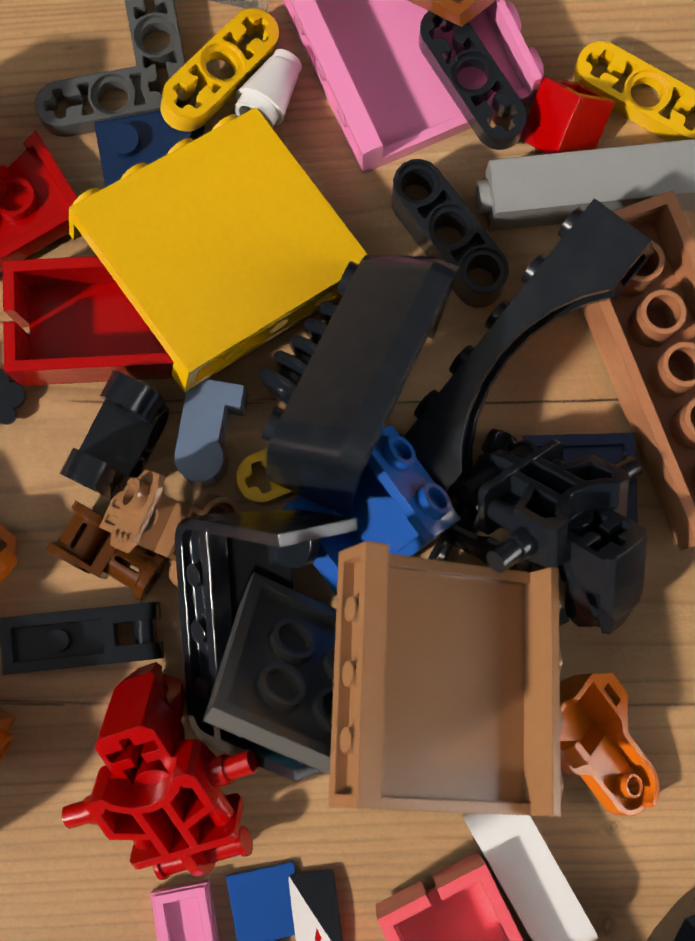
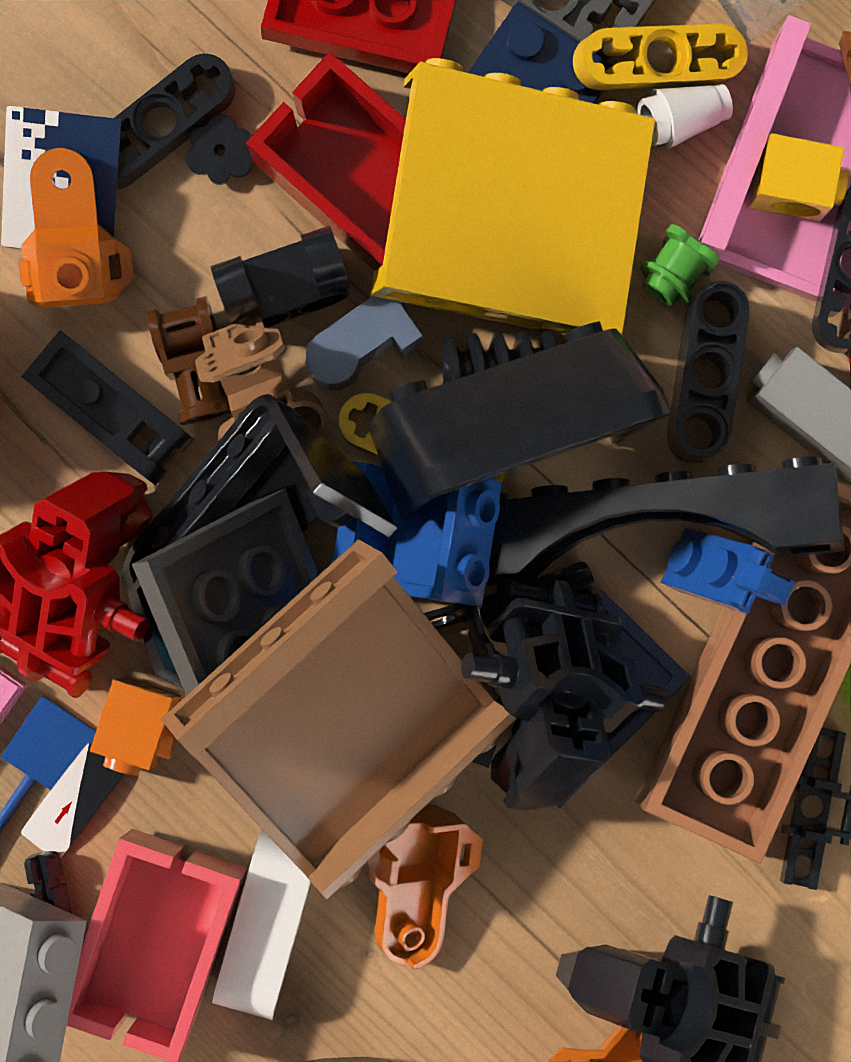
camera: 45 degrees right, 5 degrees up
(310, 832) = (132, 728): none -> orange brick
(362, 186) = (677, 267): none -> bright green brick
(383, 59) = (799, 178): none -> yellow brick
(590, 342) = (724, 572): none -> blue hinge

